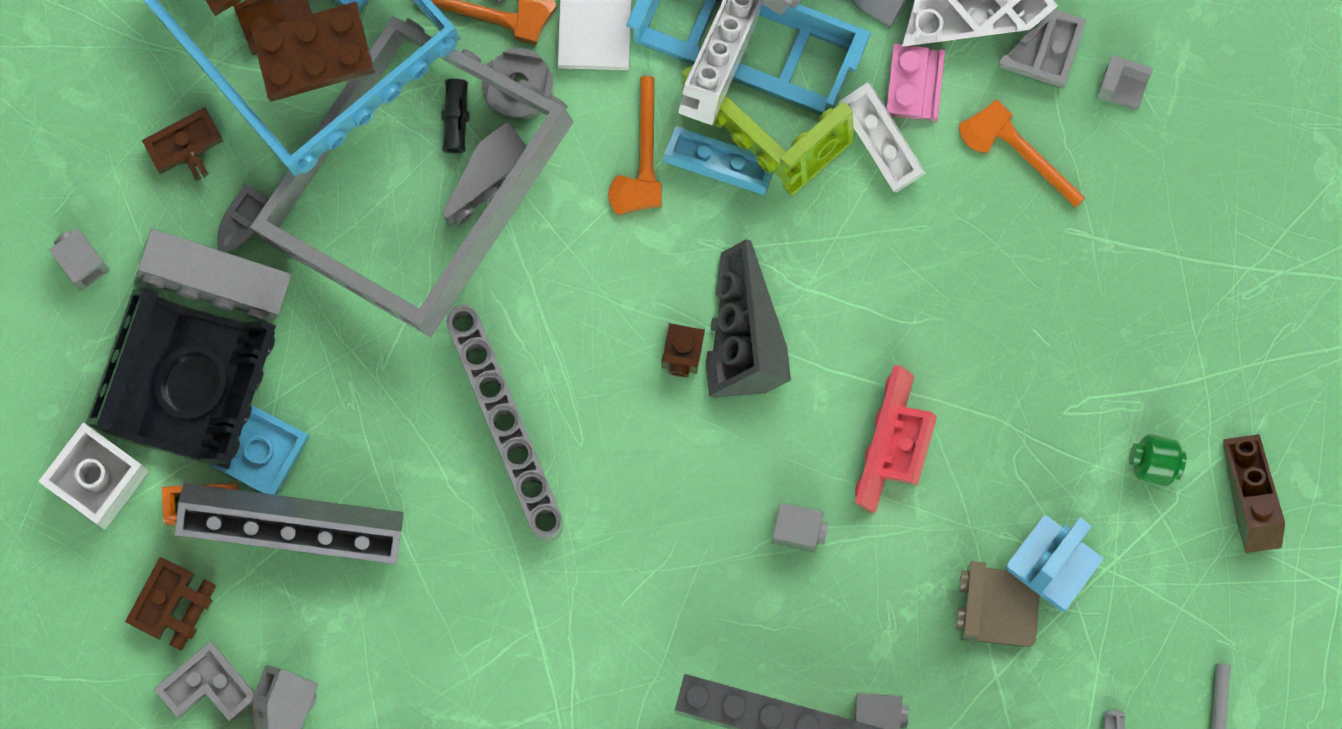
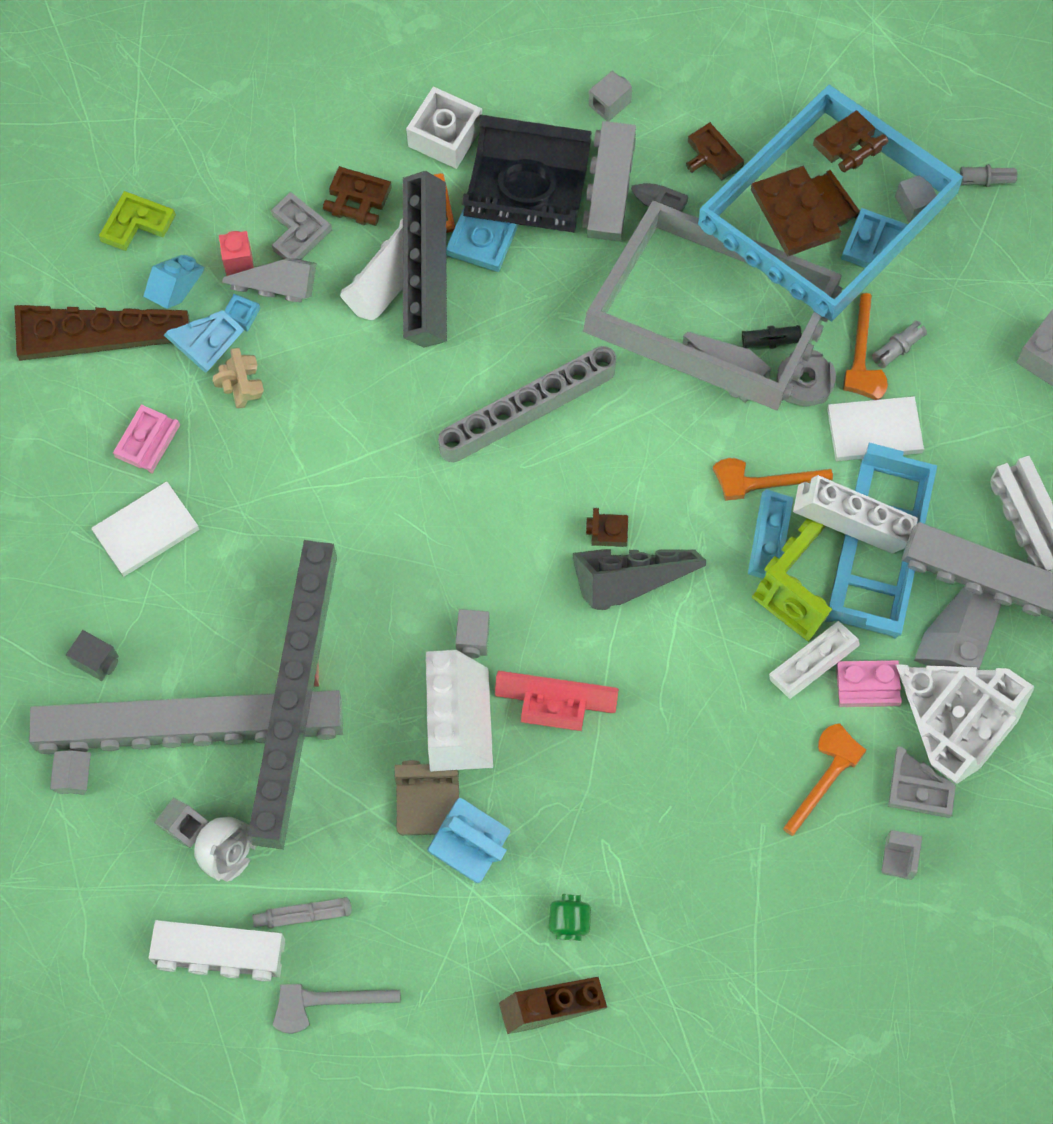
camera: 80 degrees right, 10 degrees down
(295, 586) = (379, 280): none -> white piece
(904, 554) = (458, 712): none -> white slope

